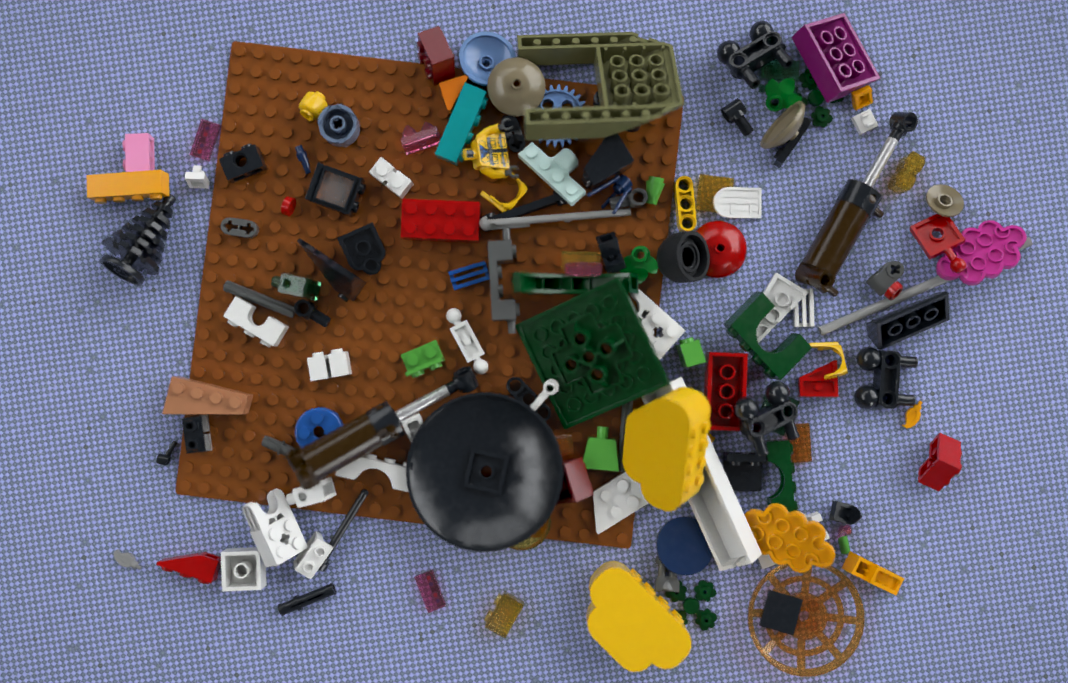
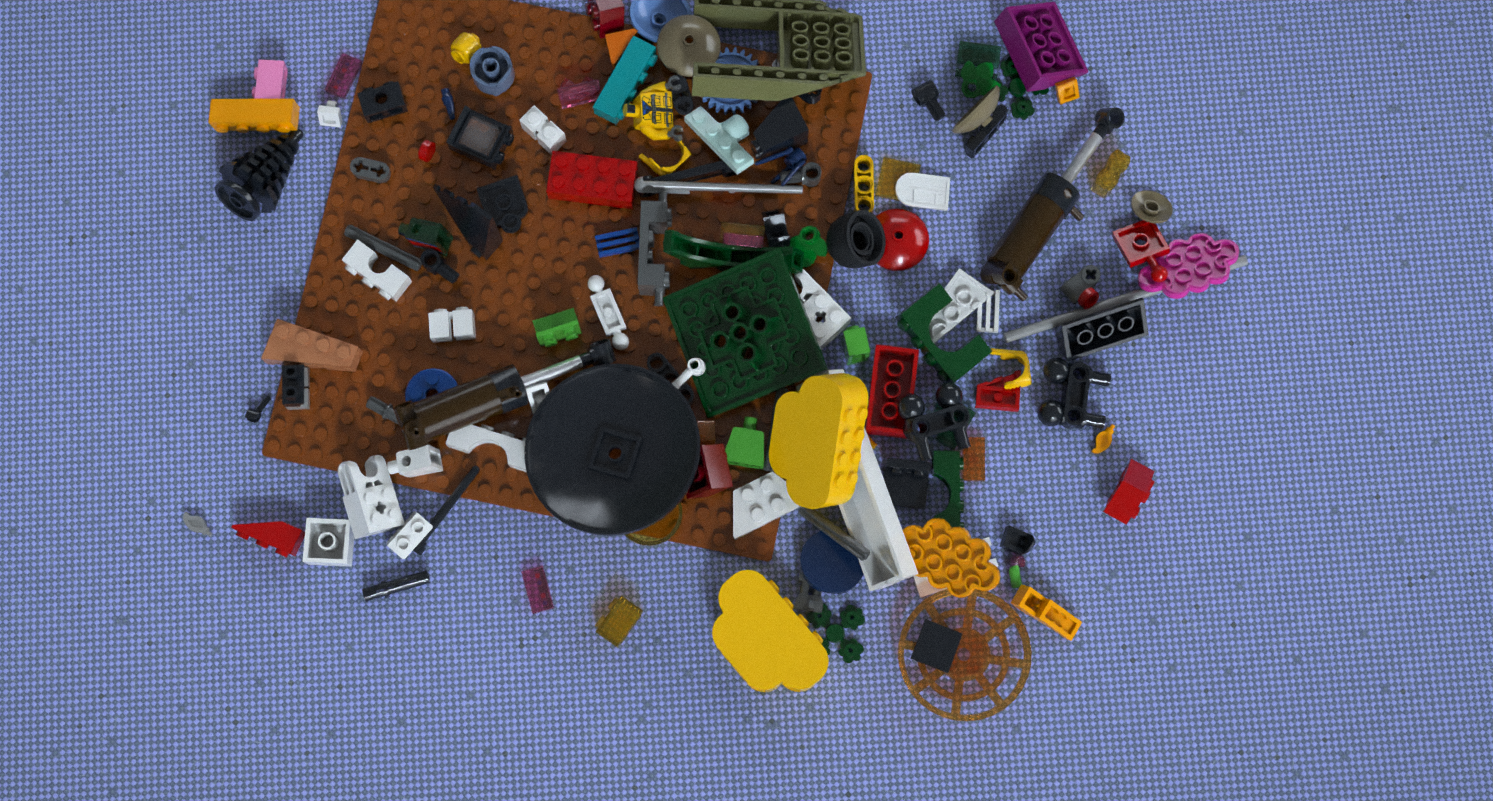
camera: 10 degrees right, 10 degrees down
(653, 189) = (830, 165): bright green cone -> none
(691, 526) = (835, 533): none -> dark grey axle
(763, 49) = (959, 31): black piece -> none
(864, 121) = (1069, 117): white tile -> none

